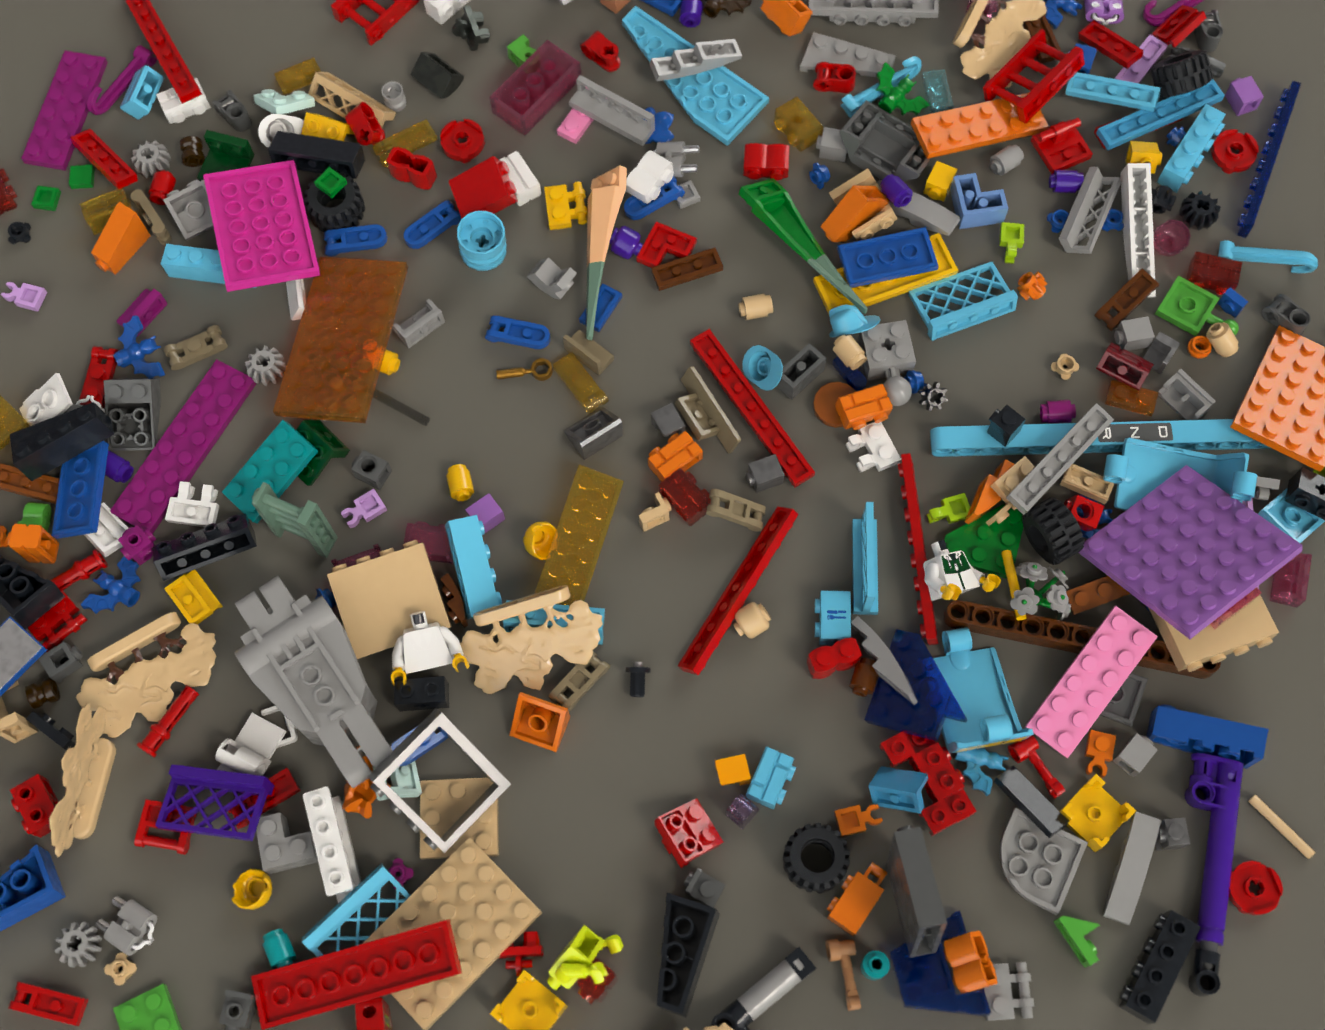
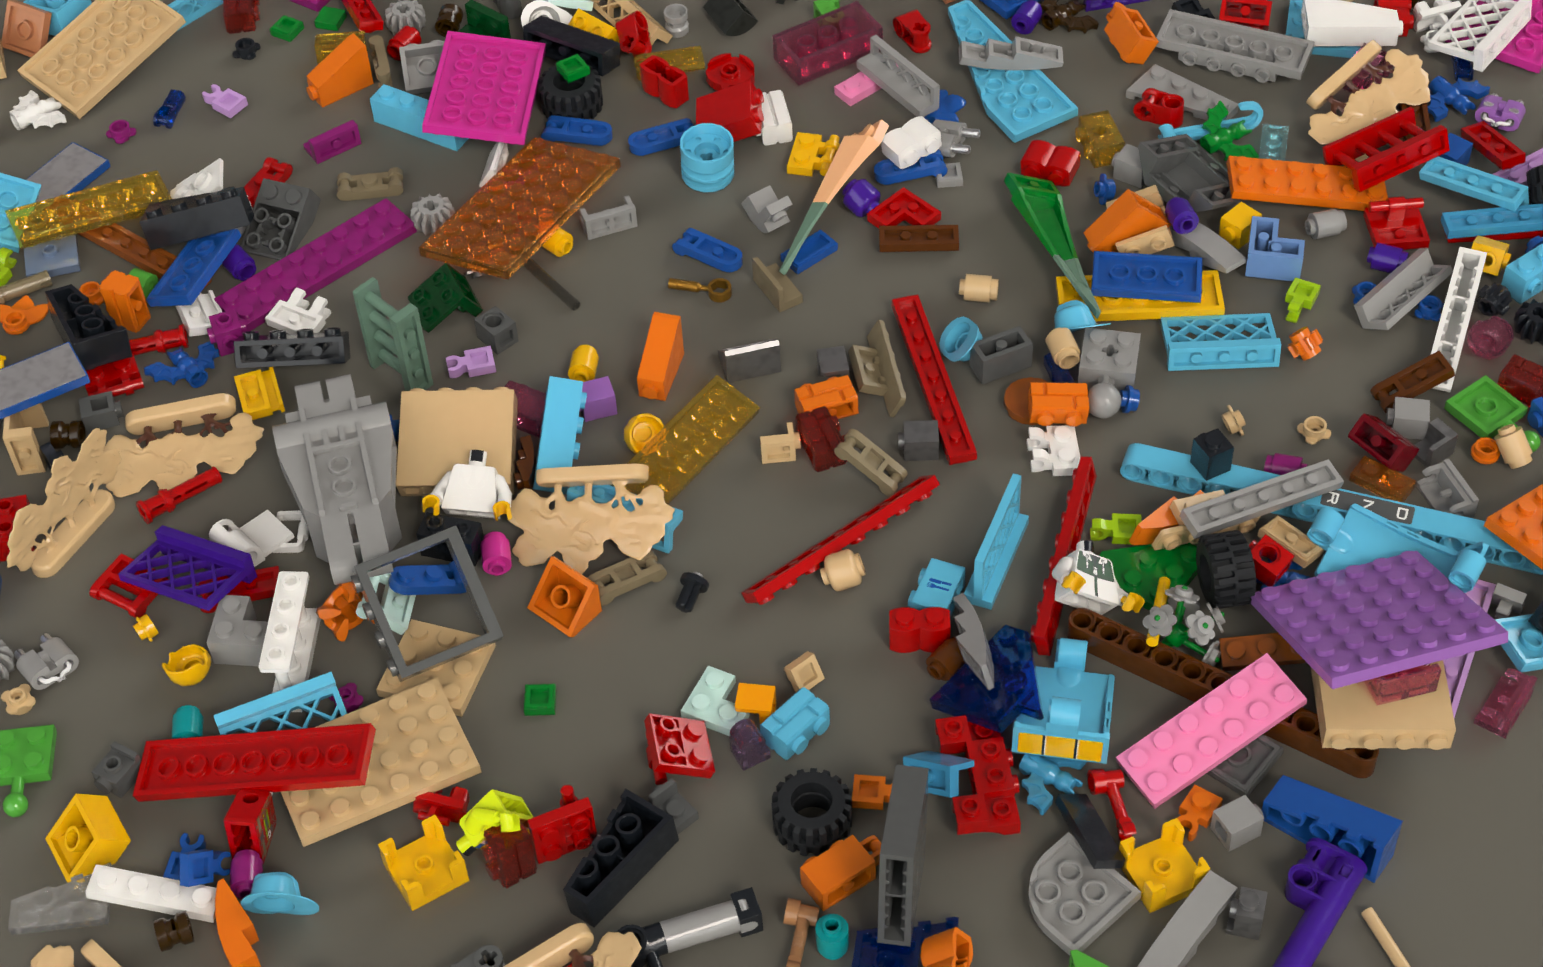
camera: 20 degrees right, 20 degrees down
(135, 352) = (307, 170): blue animal -> none
(198, 863) = (145, 628): none -> yellow plate
(275, 463) = (412, 284): teal plate -> none
(464, 695) = (496, 554): none -> dark pink brick
(524, 459) = (660, 356): none -> orange slope
(556, 820) = (540, 699): none -> green tile
(580, 382) = (755, 311): clear yellow plate -> none
(639, 938) = (563, 828): none -> red plate
(691, 780) = (710, 704): none -> light aqua plate
(758, 727) = (804, 672): none -> tan tile
(939, 397) = (1139, 422): black gear -> none
(1002, 378) = (1233, 421): none -> tan plate

